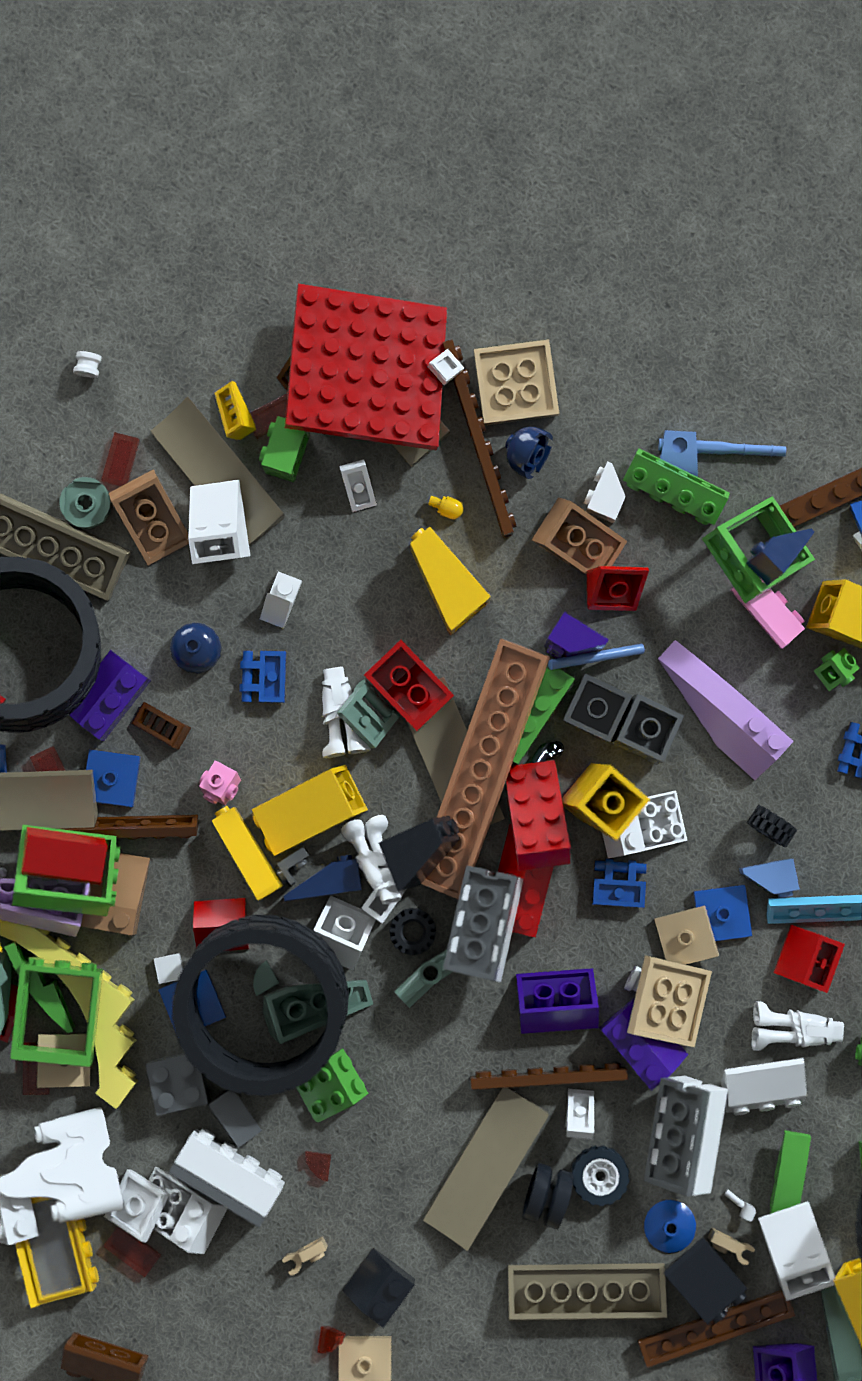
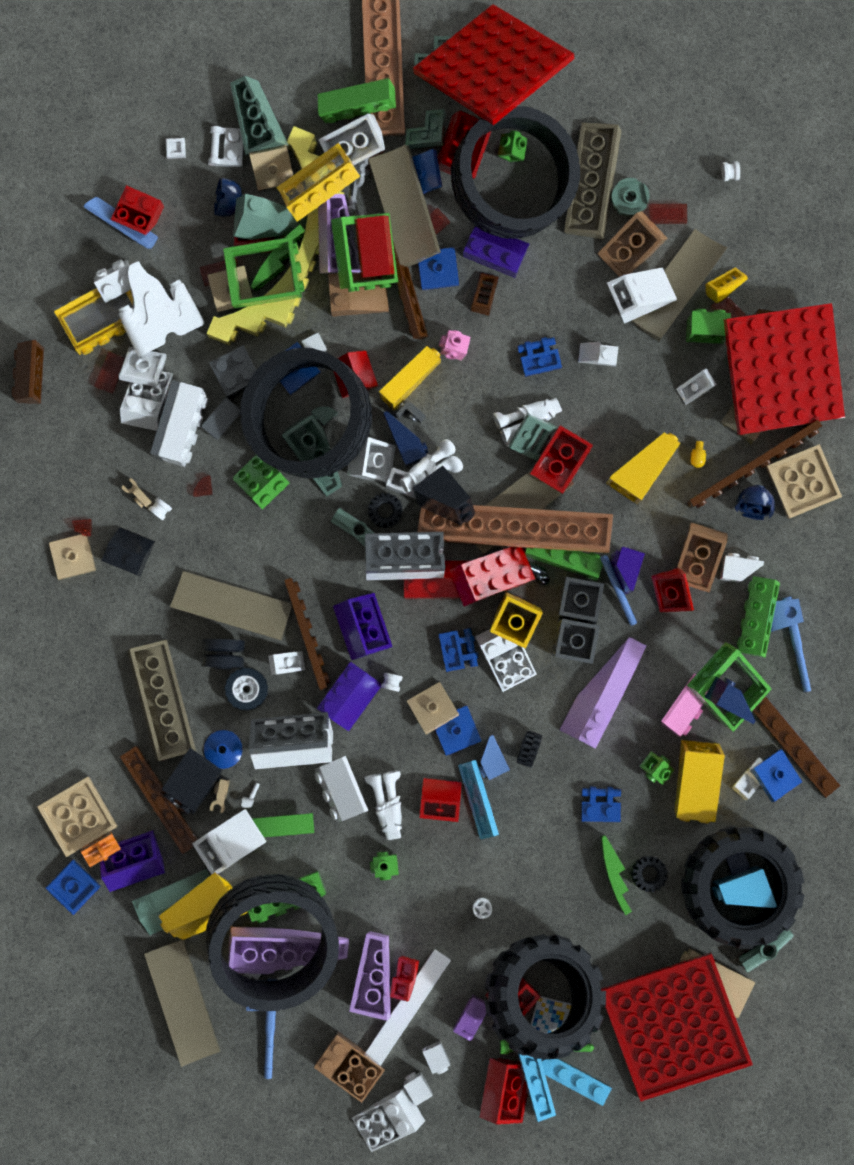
camera: 75 degrees right, 0 degrees up
(195, 648) = (547, 303): dark blue cylinder -> none
(309, 809) = (453, 413): yellow slope -> none
(332, 1230) = (160, 508): none -> white wheel
(445, 367) = (800, 425): white tile -> none
(669, 1001) = (383, 706): tan plate -> none

